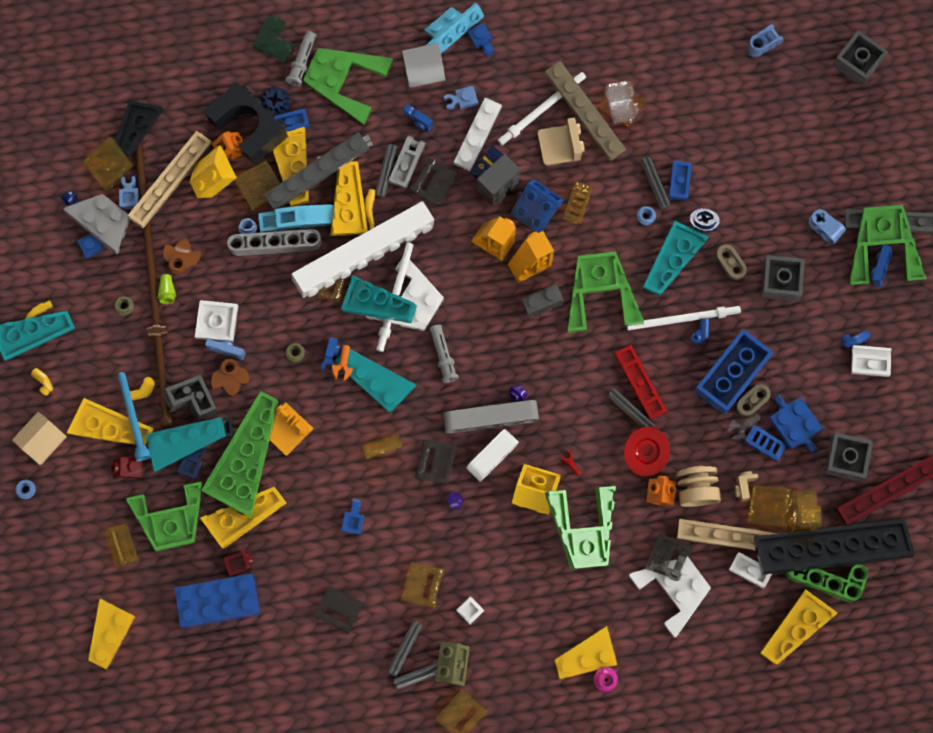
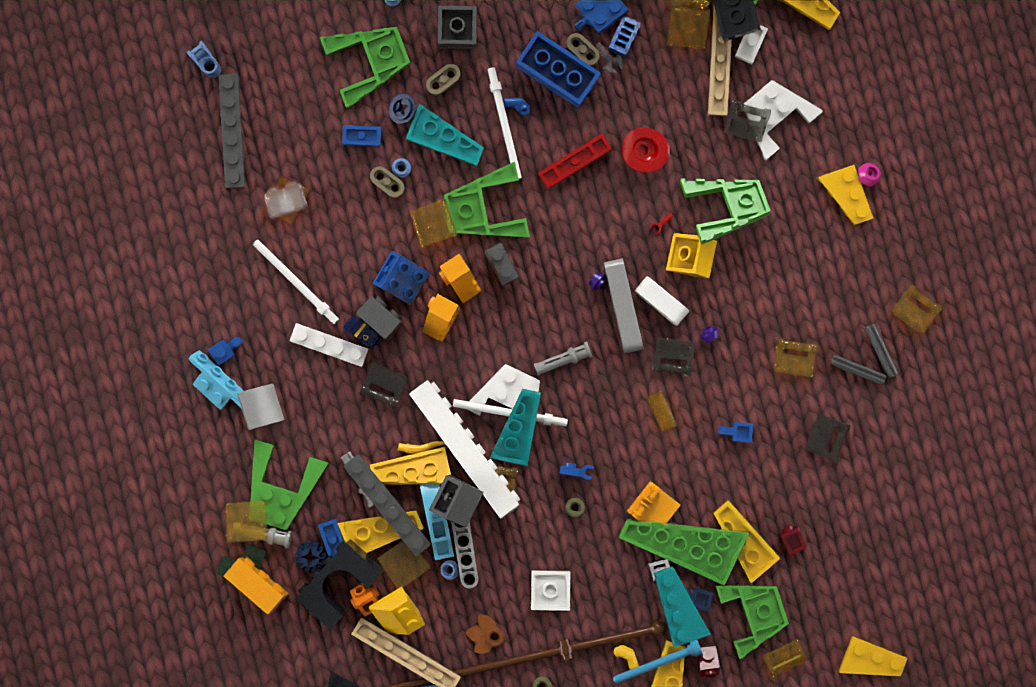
camera: 95 degrees left, 10 degrees up
(166, 290) = (522, 645): lime cone -> none
(192, 394) = (629, 605): dark grey brick -> none
(217, 601) = (832, 556): blue brick -> none
(225, 348) = (578, 577): medium blue plate -> none
(230, 380) = (608, 568): dark orange plate -> none
(252, 46) = (256, 585): none -> light orange wedge
(313, 231) = (456, 500): none -> dark grey slope
(315, 43) = (246, 521): none -> clear yellow plate
(343, 364) = (585, 457): orange bar -> none
(378, 381) = (596, 422): teal wing -> none
(385, 171) = (376, 435): dark grey axle -> none
(406, 162) = (366, 414): light grey plate -> none
(420, 119) = (320, 404): blue plate -> none
(452, 663) = (870, 322): olive bracket -> none
(464, 98) = (290, 362): medium blue plate -> none
(470, 610) = (815, 310): white tile -> none
(561, 143) = (333, 259): tan bracket -> none
(580, 187) = (378, 232): clear yellow slope -> none
(585, 111) = (296, 237): dark tan plate -> none
(588, 240) = (433, 223): none -> clear yellow plate
(629, 409) = (603, 169): dark grey axle -> none
(632, 201) = (387, 182): none -> dark tan plate
(655, 182) = (365, 161): dark grey axle -> none
(661, 491) = (683, 133): orange brick -> none
(693, 61) = (232, 131): none -> dark grey plate
(698, 483) = (676, 97): tan wheel -> none
(742, 489) = (672, 55): tan bracket -> none
(761, 208) = (384, 52): none -> bright green wing

